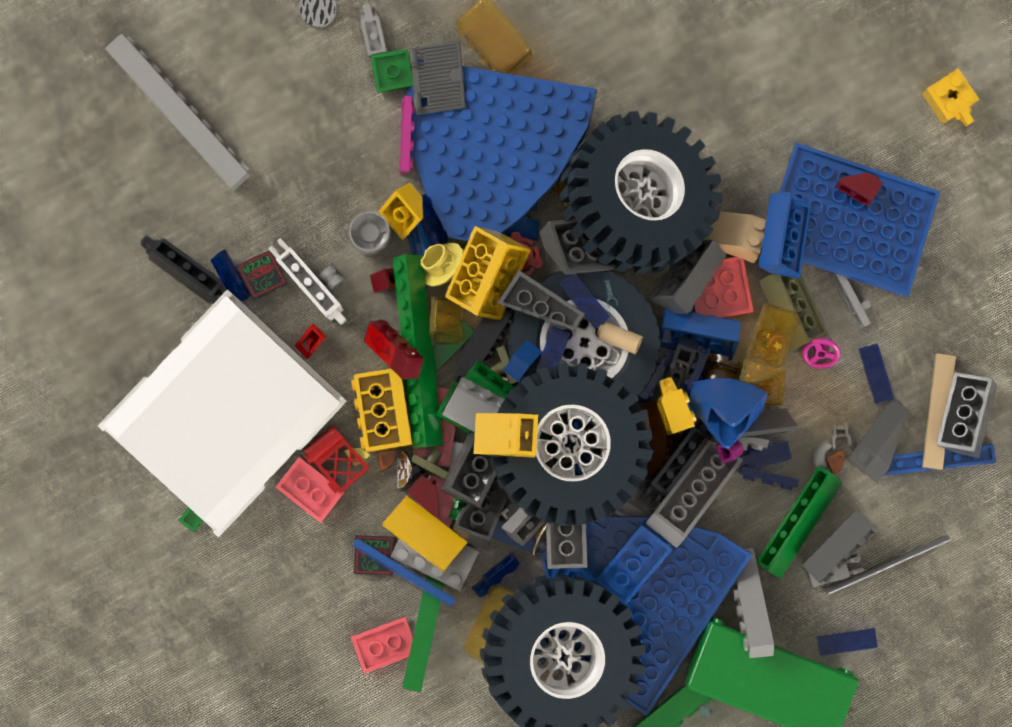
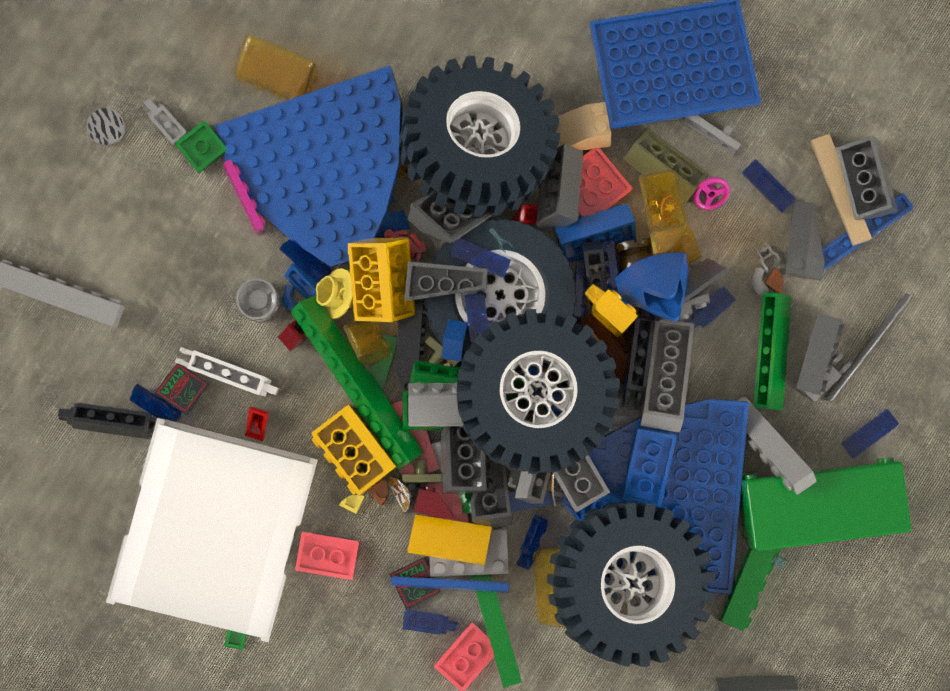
camera: 25 degrees left, 0 degrees up
(325, 447) = (320, 512): red piece -> none
(331, 277) = (245, 357): light grey wheel -> none
(366, 595) = (427, 622): none -> clear blue hinge
(393, 349) = (334, 391): dark red brick -> none
(395, 247) = (287, 299): none -> blue arm
(403, 210) = (277, 264): yellow slope -> none
(438, 78) = (245, 131): dark grey window -> none
(506, 434) = (476, 413): yellow slope -> none
(619, 337) = (529, 273): tan brick -> none
(646, 283) = (526, 214): none -> red slope
(731, 453) = (680, 325): magenta plate -> none
(768, 478) = (724, 327): clear blue plate -> none
(785, 235) = (625, 106): blue slope -> none
(860, 187) = (668, 29): dark red slope -> none

